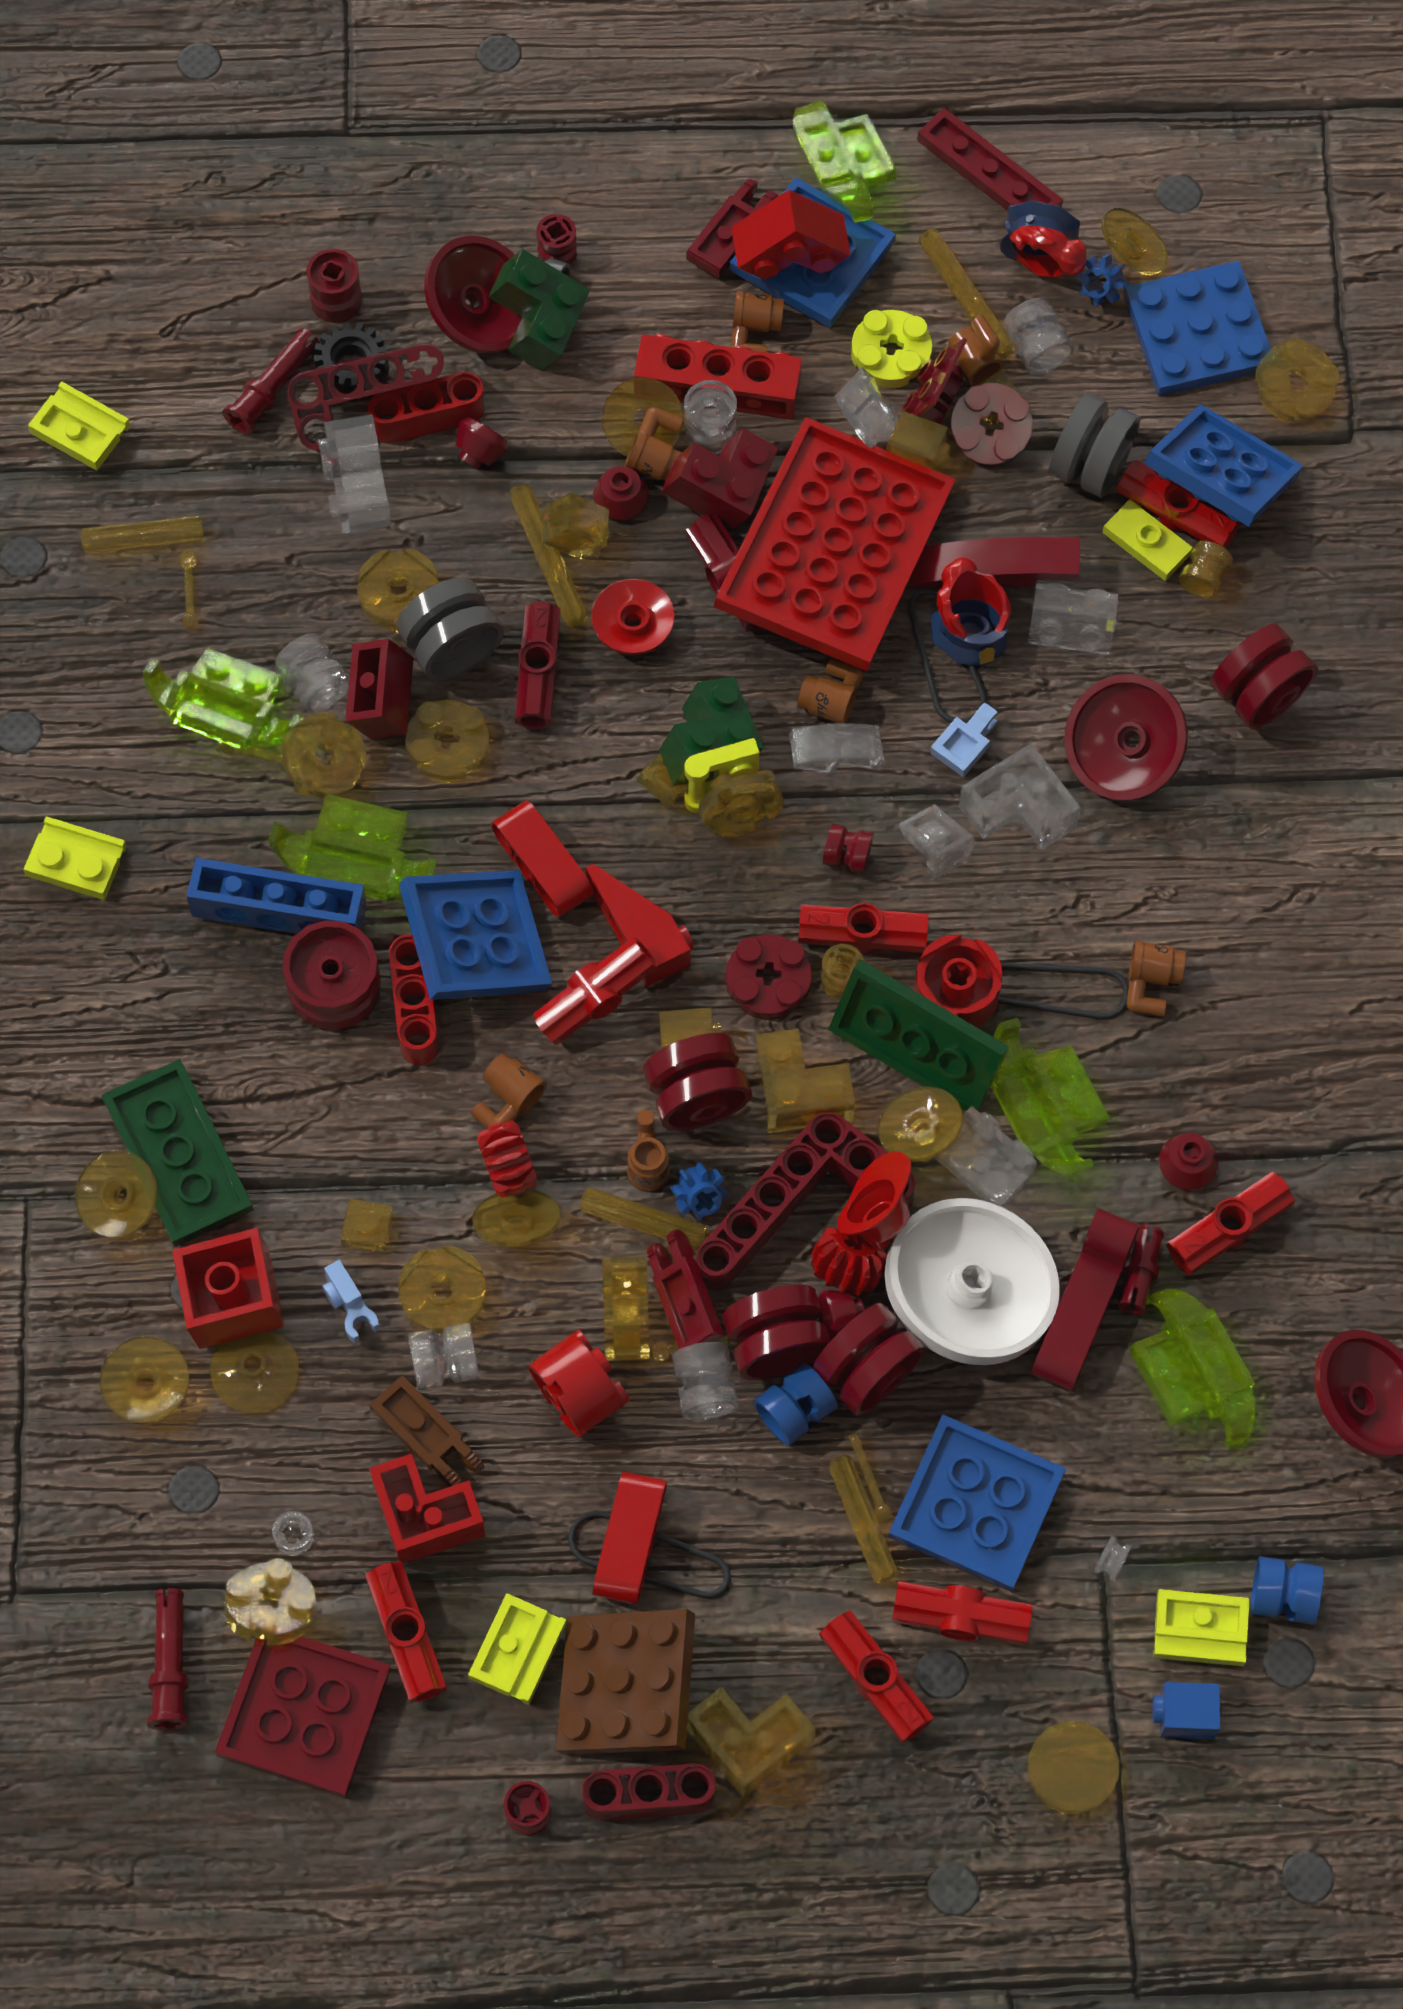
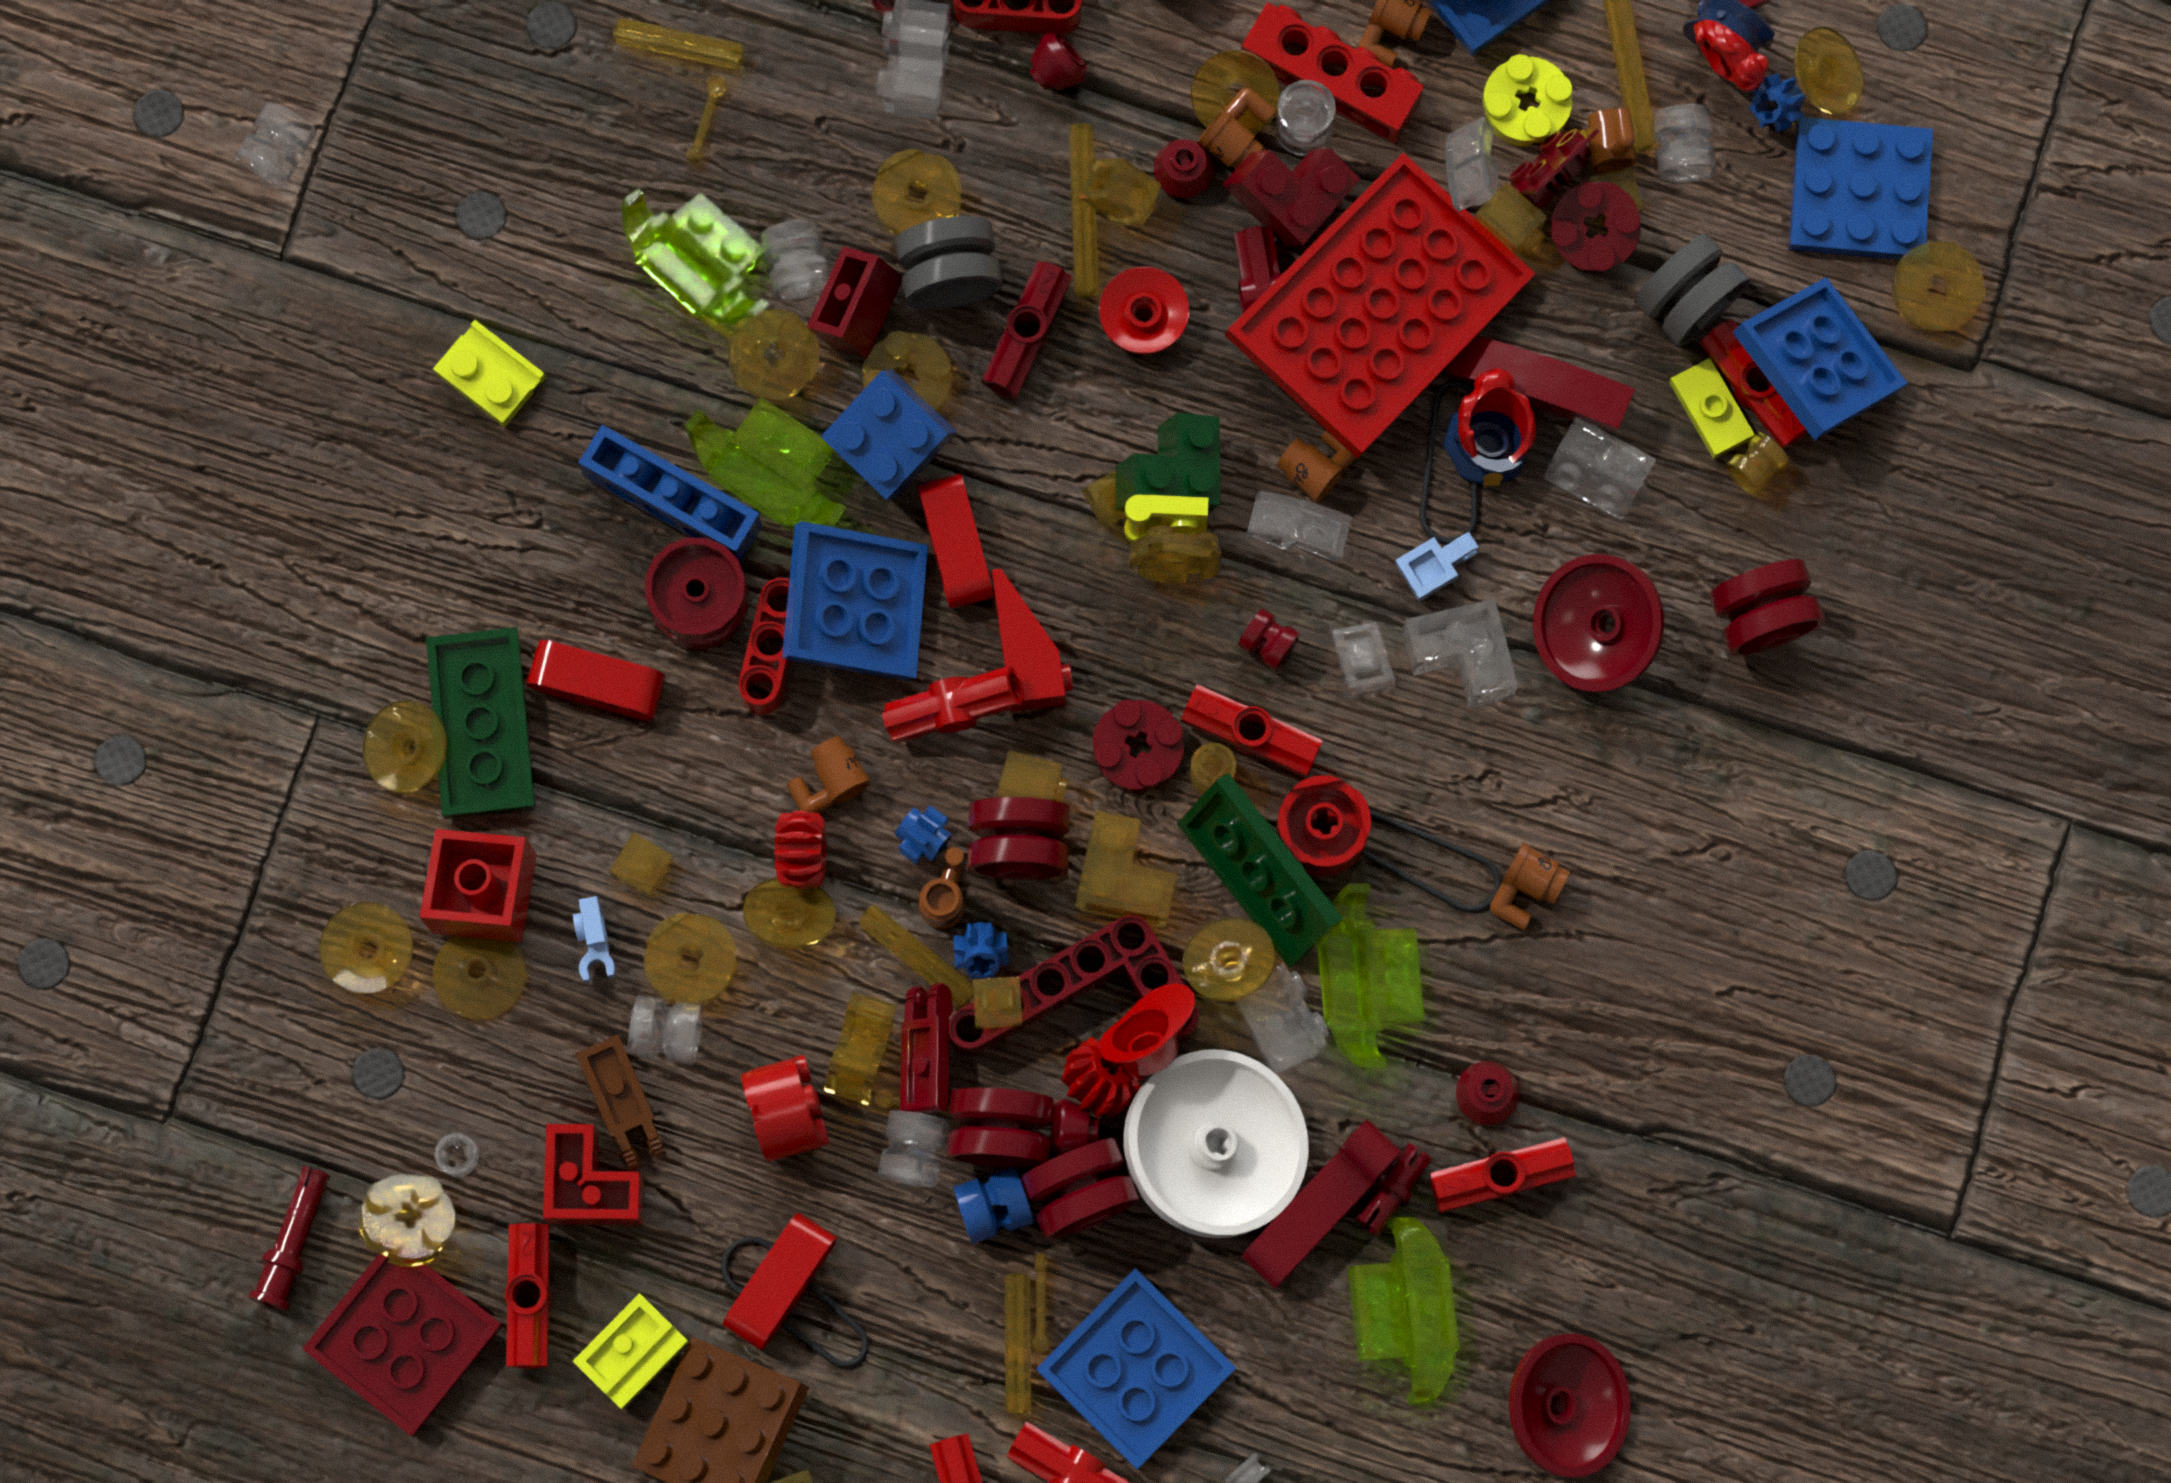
camera: 20 degrees right, 10 degrees up
(267, 1081) = (596, 680): none -> red beam
(451, 785) = (888, 434): none -> blue brick
(610, 1111) = (923, 834): none -> blue gear
(733, 1225) = (997, 1002): none -> clear yellow tile

